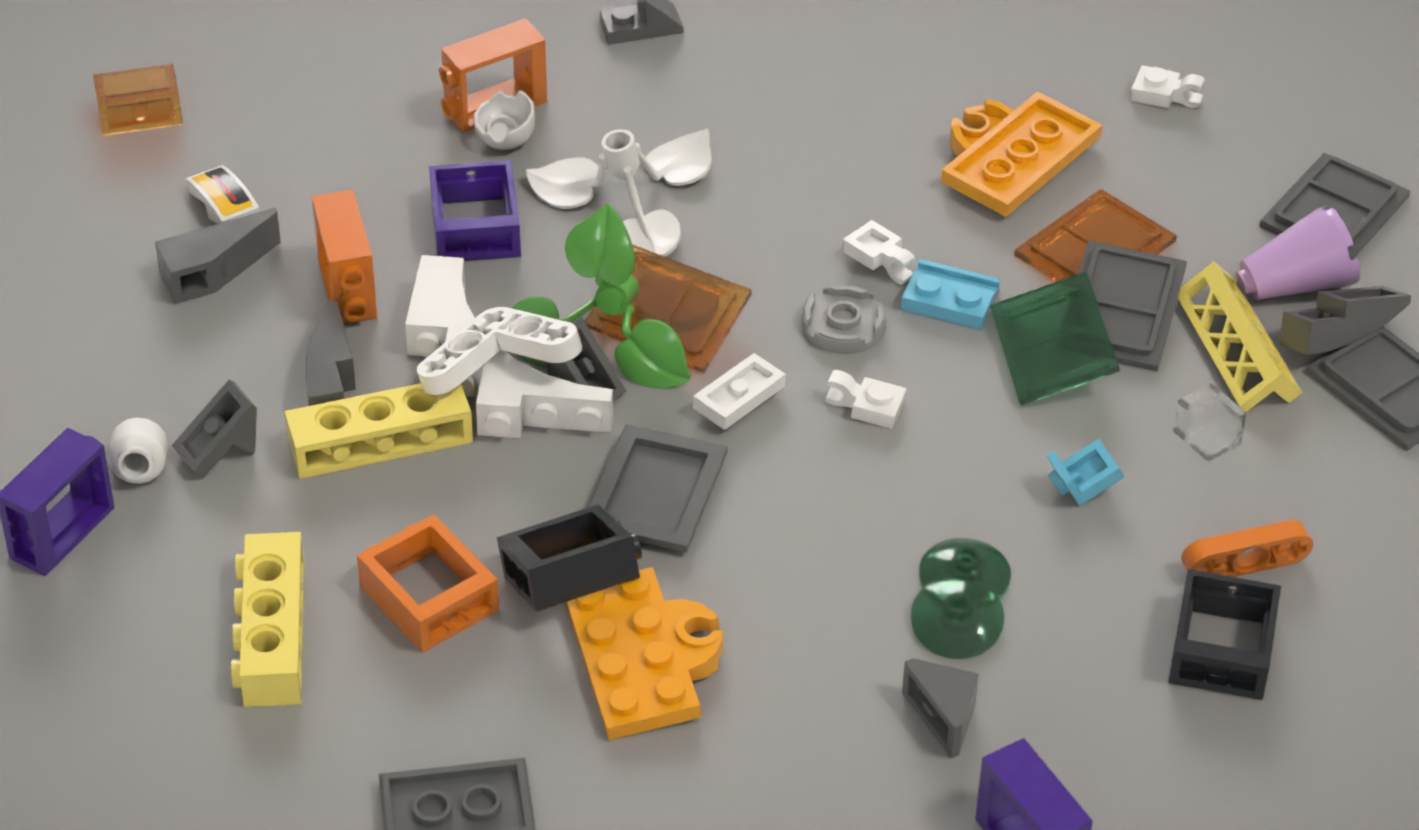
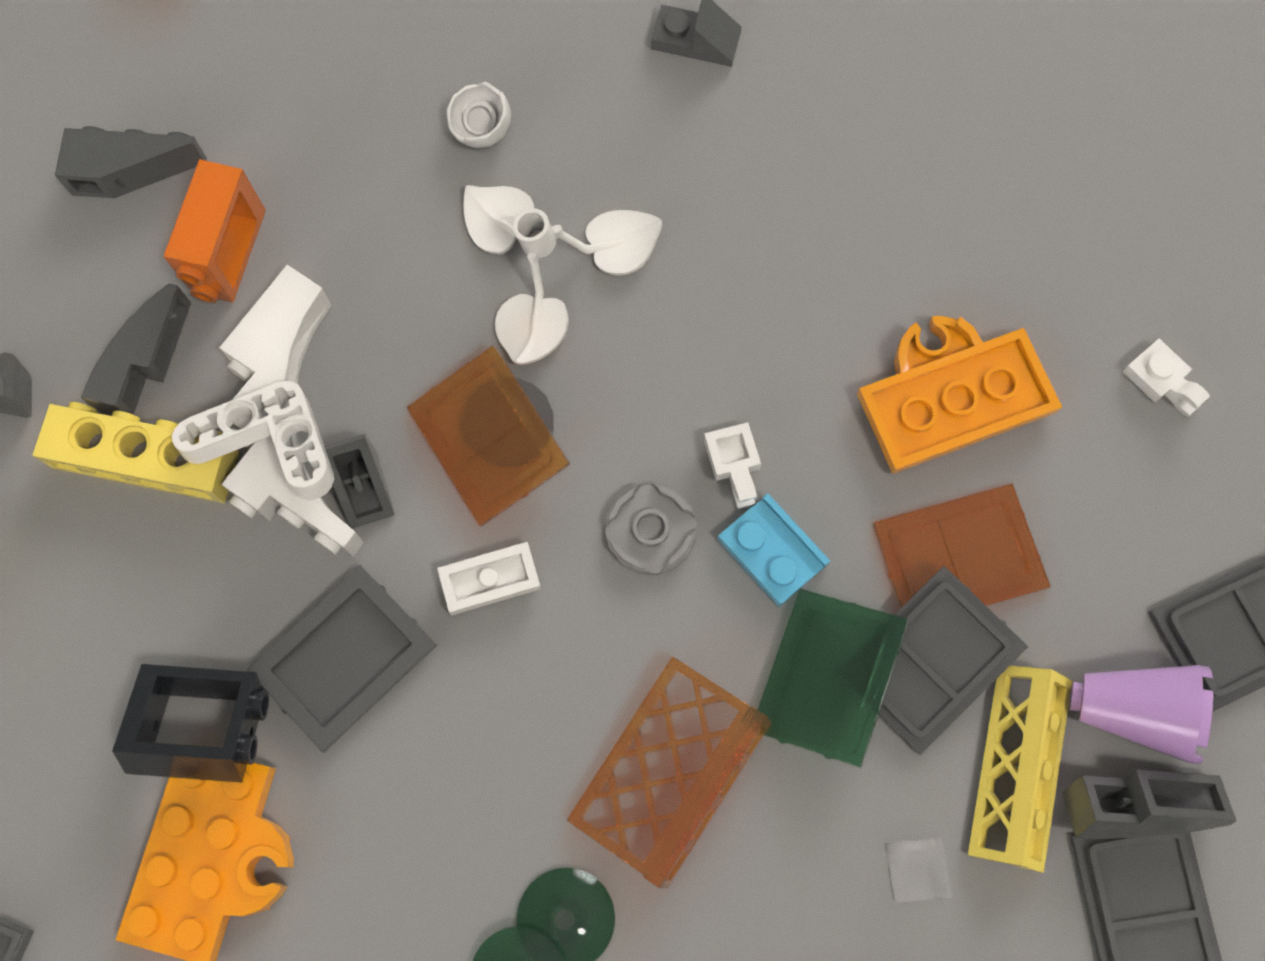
camera: 30 degrees right, 30 degrees up
(222, 194) = (176, 87): slope -> none
(432, 620) = (107, 672): orange window -> none
(476, 236) = (367, 257): dark purple window -> none
(514, 40) = (492, 37): orange window -> none
(604, 250) = (380, 403): bright green plant -> none
(870, 402) = (612, 653): white plate -> none
(1013, 449) = (703, 797): none -> clear orange fence
(1085, 472) = (749, 868): medium azure bracket -> none

